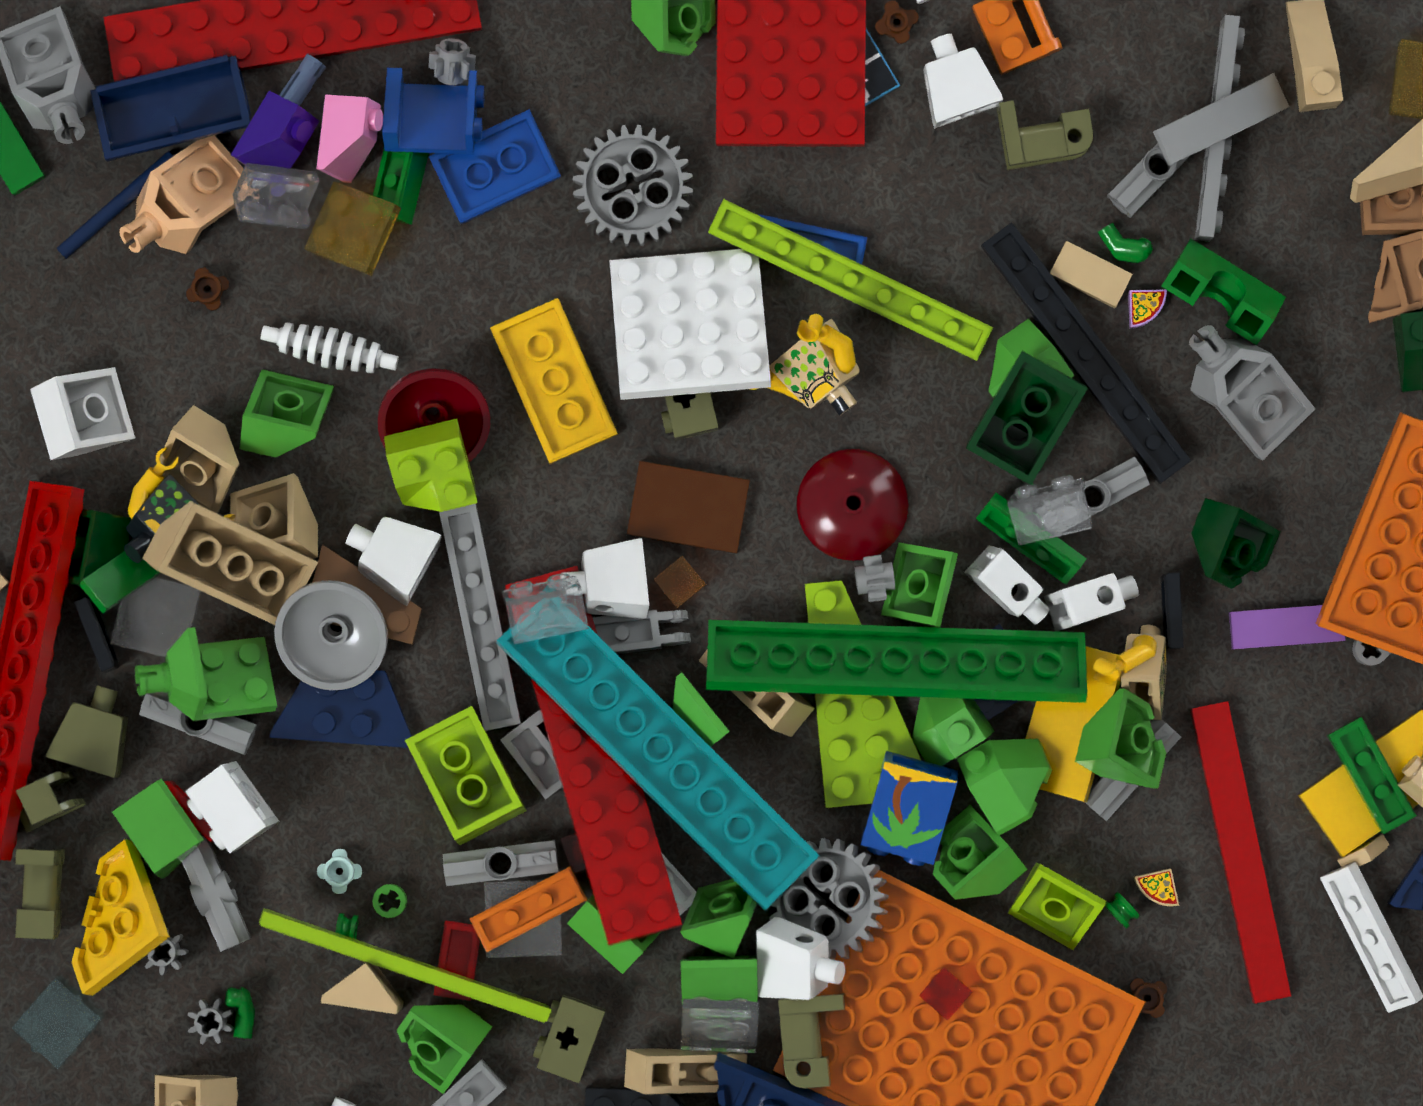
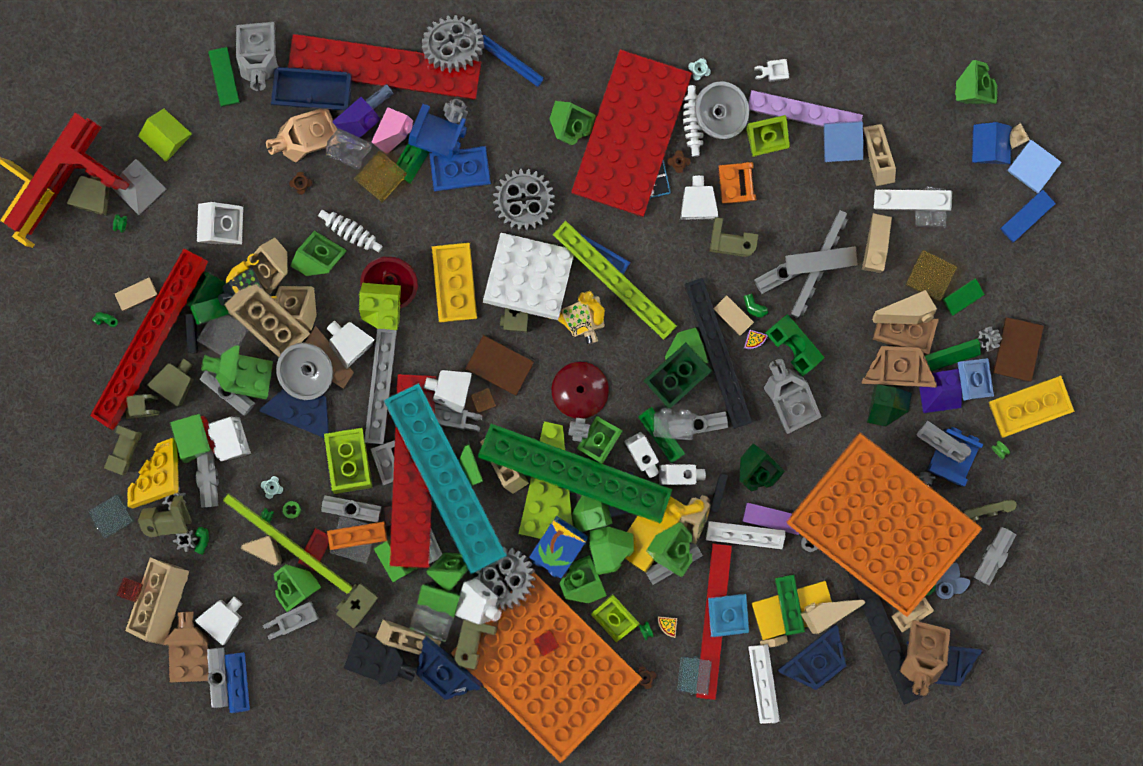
camera: 15 degrees right, 0 degrees up
(109, 211) = (265, 129): dark blue bar -> none
(164, 999) = (165, 522): none -> olive piece
(545, 608) = (412, 392): clear bracket -> none
(1237, 964) = (694, 675): none -> clear light blue piece
(1247, 673) = (745, 535): none -> white plate
(1264, 831) = (728, 615): none -> dark azure tile

